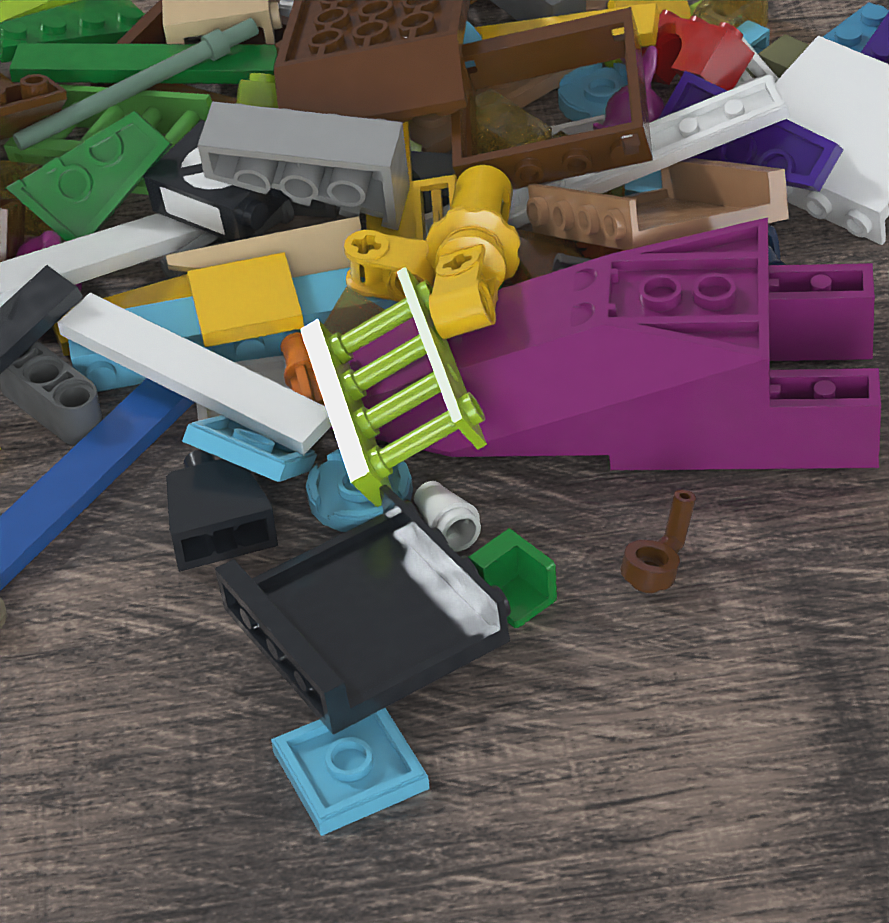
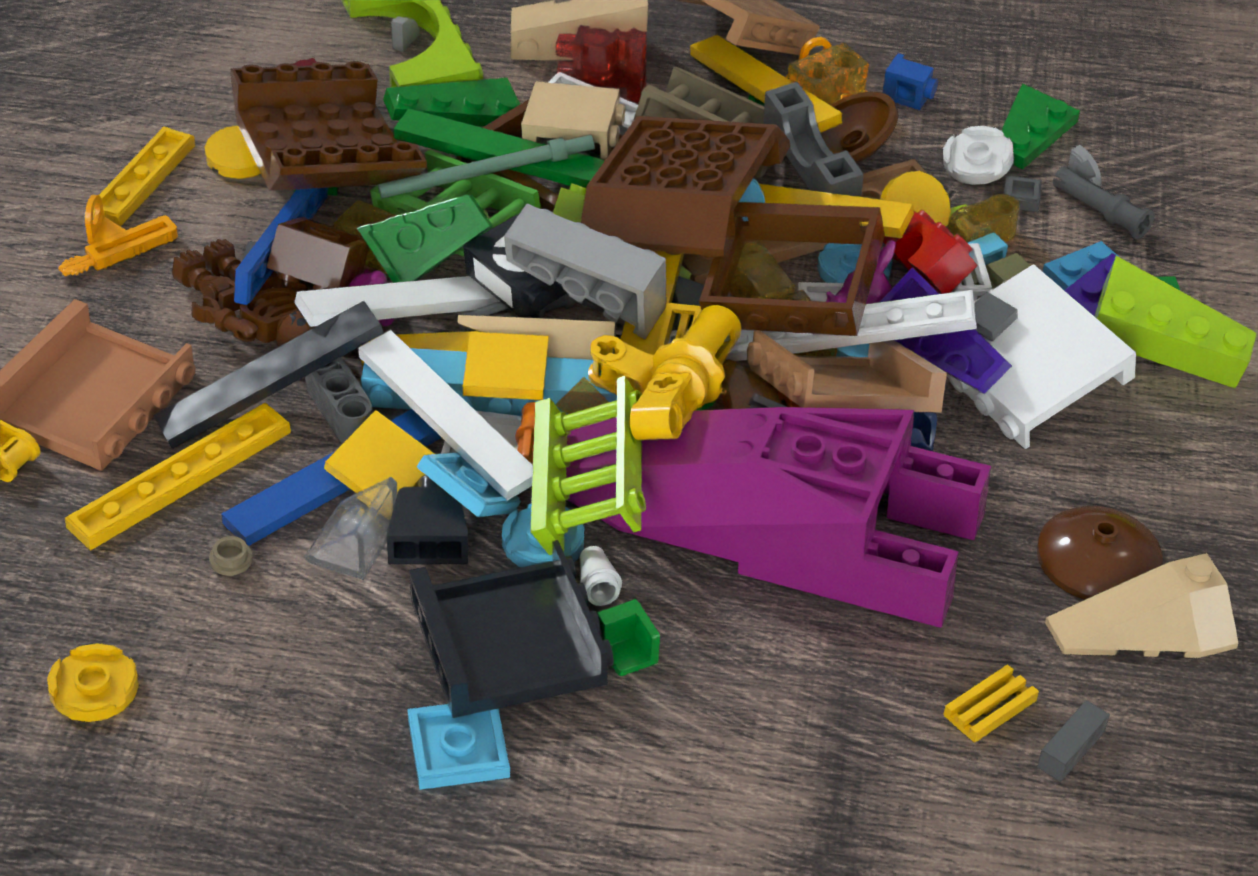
camera: 10 degrees right, 0 degrees up
(127, 452) = (376, 453): none -> yellow tile
(127, 541) = (355, 531): none -> clear slope
(654, 564) = (736, 655): reddish brown plate -> none
(801, 98) = (993, 316): none -> dark grey tile

